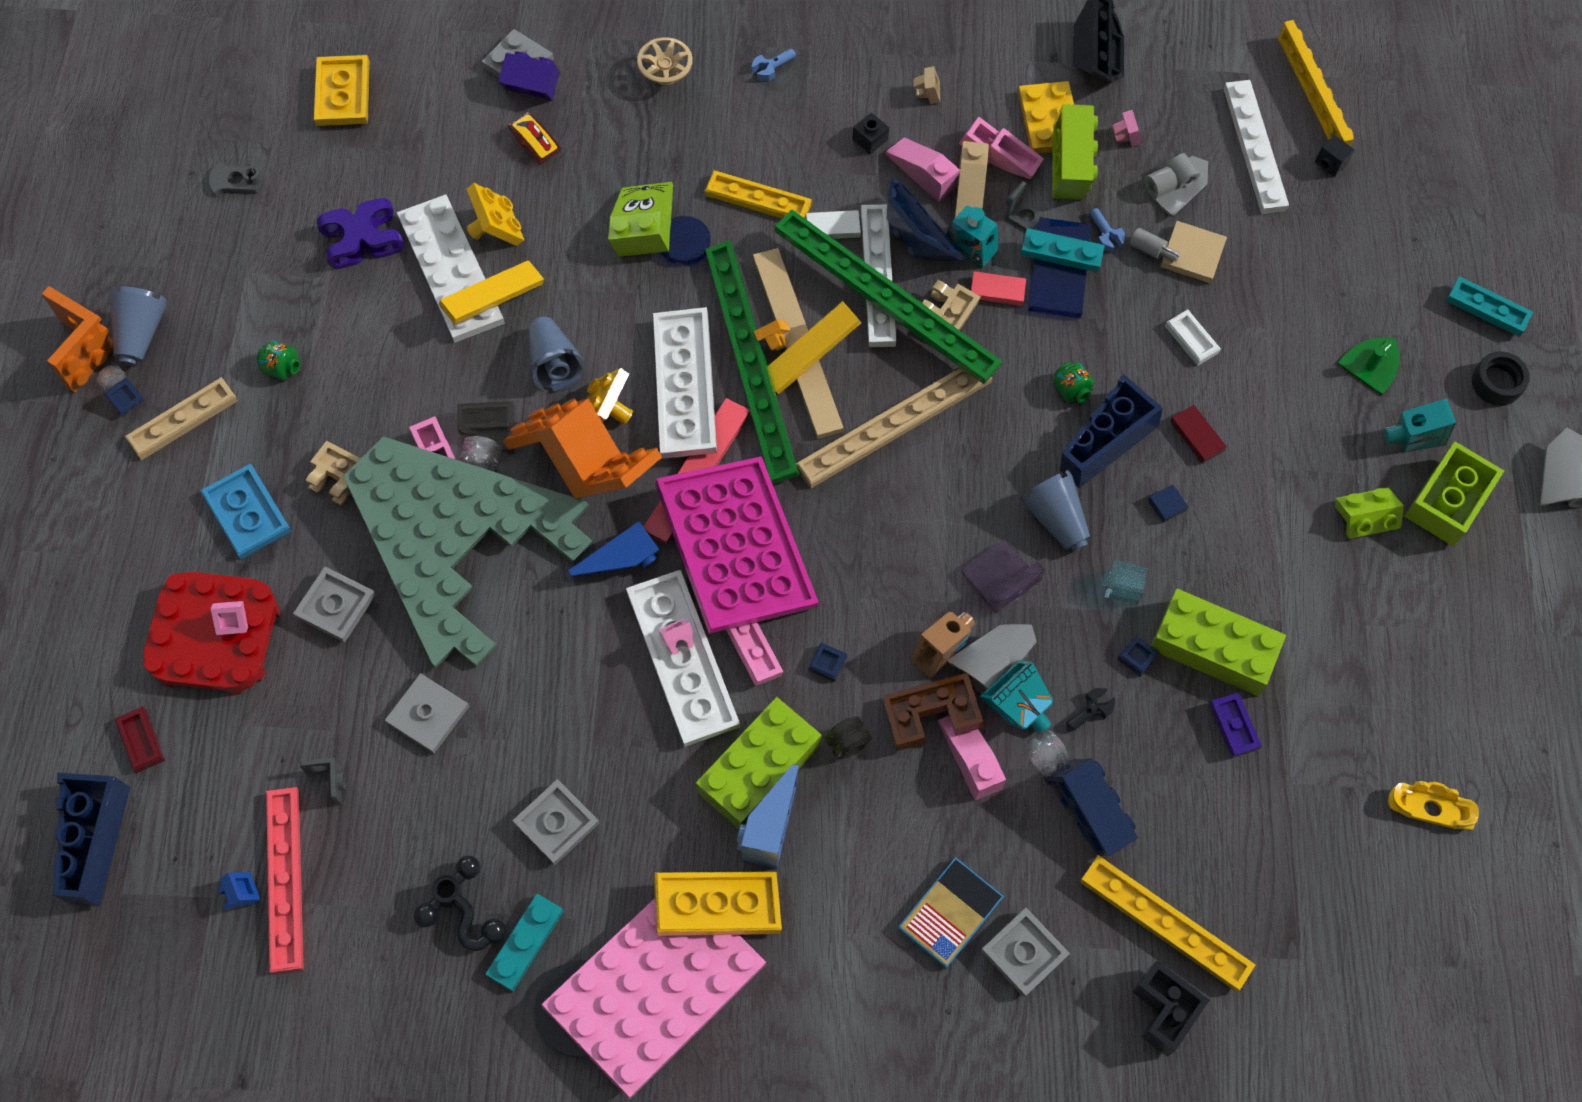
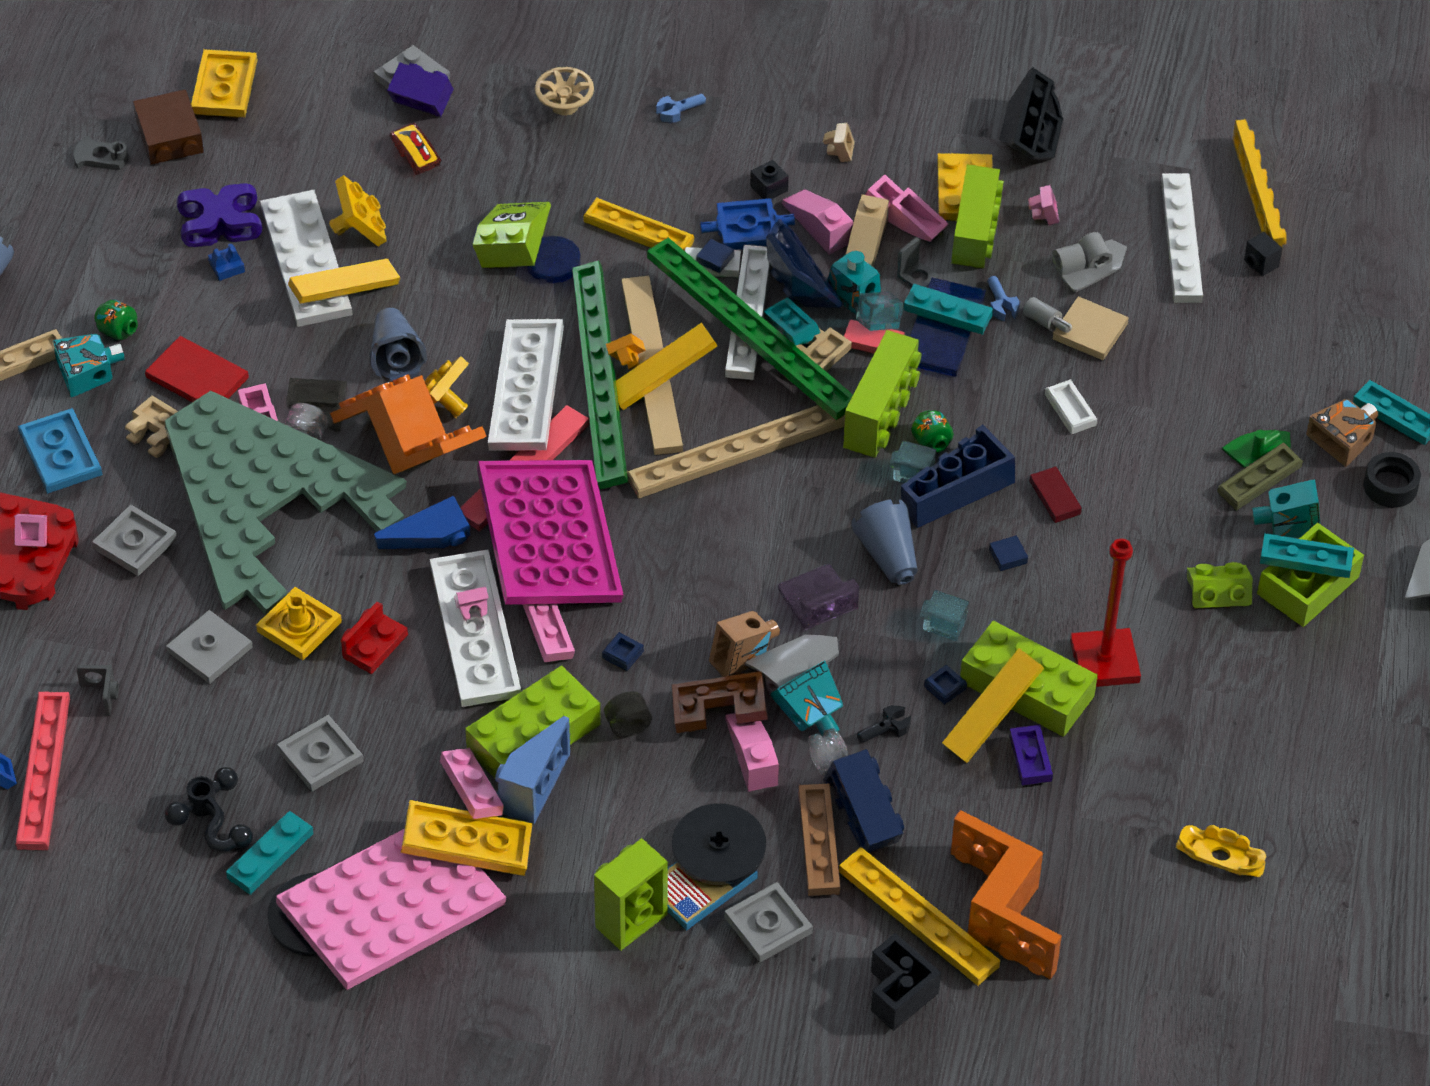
camera: 10 degrees right, 15 degrees down
(255, 411) = (85, 362): none -> teal torso
(296, 143) = (168, 126): none -> reddish brown brick
(365, 408) = (195, 371): none -> red tile
(375, 283) = (226, 262): none -> blue tile
(510, 676) = (299, 623): none -> yellow plate
(585, 684) = (372, 639): none -> red bracket
(710, 838) = (471, 783): none -> bright pink plate
(836, 220) = (715, 256): none -> dark blue tile
(859, 181) = (745, 222): none -> blue plate
(893, 955) = (631, 893): none -> lime brick
(923, 284) = (792, 322): none -> teal plate
(948, 891) = (741, 847): none -> black piece
(1001, 261) = (879, 311): none -> clear light blue brick
(1023, 352) = (882, 394): none -> lime brick
(1055, 850) = (819, 839): none -> medium nougat plate
(1062, 420) = (911, 460): none -> clear light blue brick
(1195, 682) = (992, 705): none -> yellow tile
(1249, 895) = (1011, 882): none -> orange bracket
(1283, 600) = (1111, 650): none -> red tile
(1380, 390) = (1259, 476): none -> olive tile
(1447, 331) = (1343, 429): none -> medium nougat torso
(1457, 482) = (1306, 555): none -> teal plate

